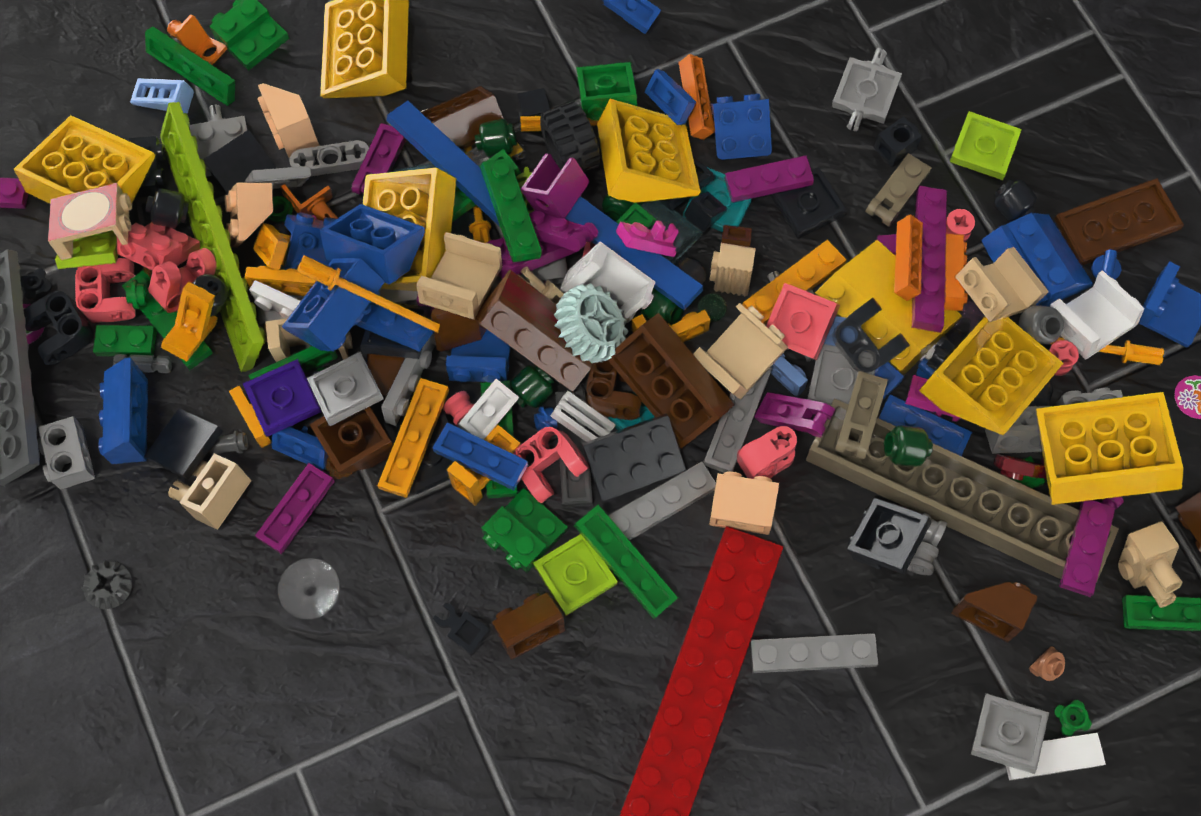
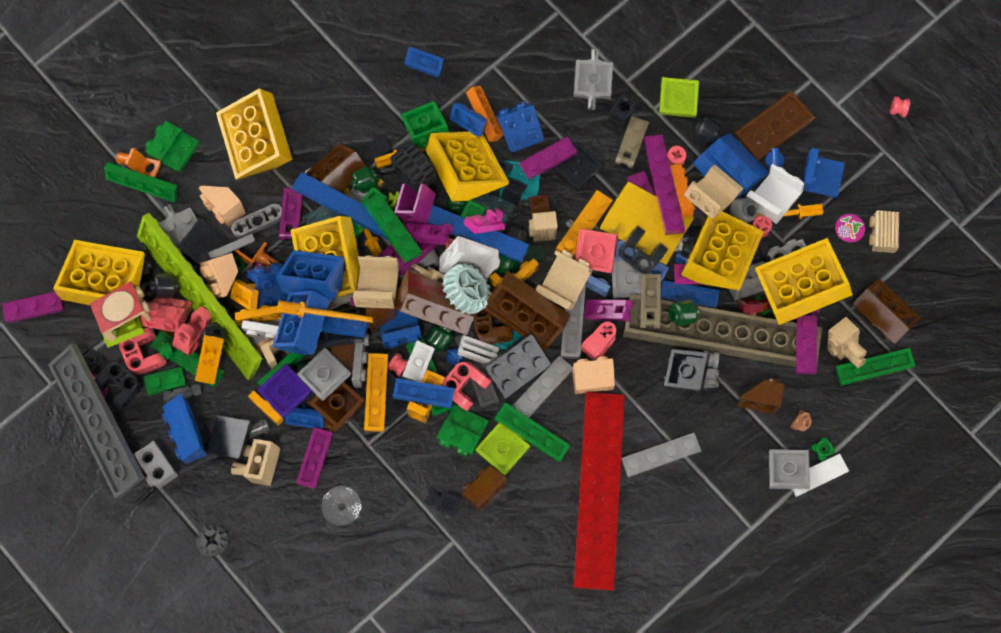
camera: 20 degrees left, 5 degrees up
(178, 89) = (140, 207): light blue slope -> none
(908, 257) = (651, 189): orange piece -> none

